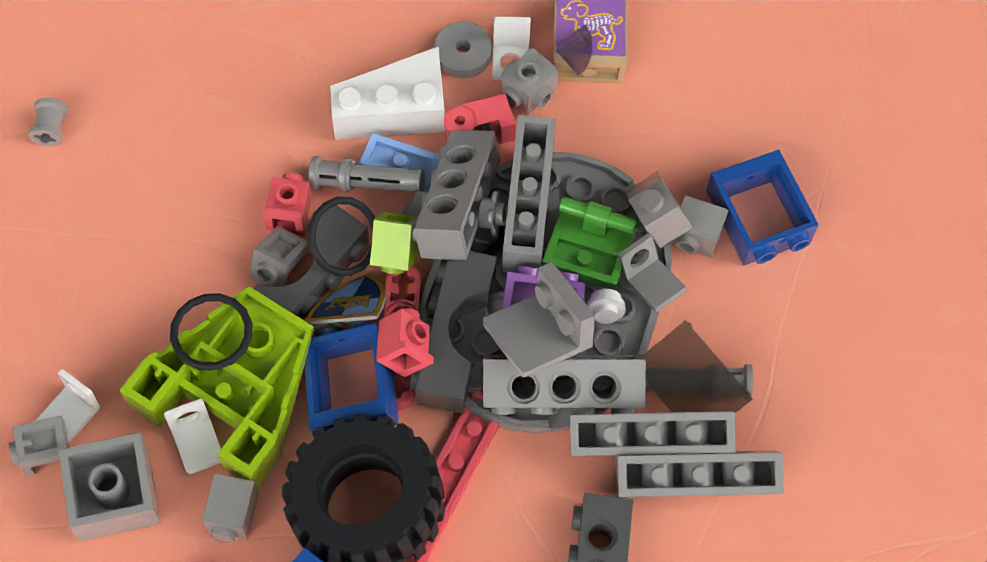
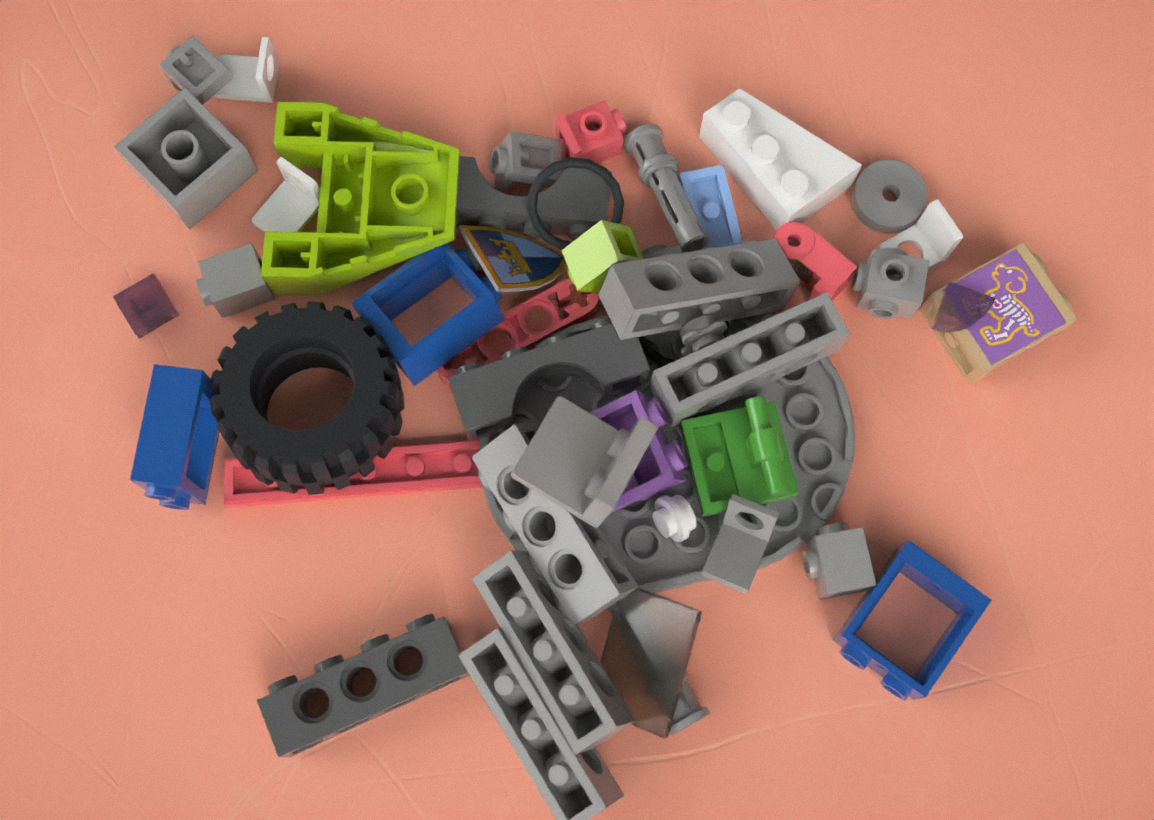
camera: 60 degrees right, 10 degrees up
(214, 297) = (395, 182): black piece -> none
(404, 342) = (490, 333): coral brick -> none
(658, 209) = (821, 505): light grey slope -> none

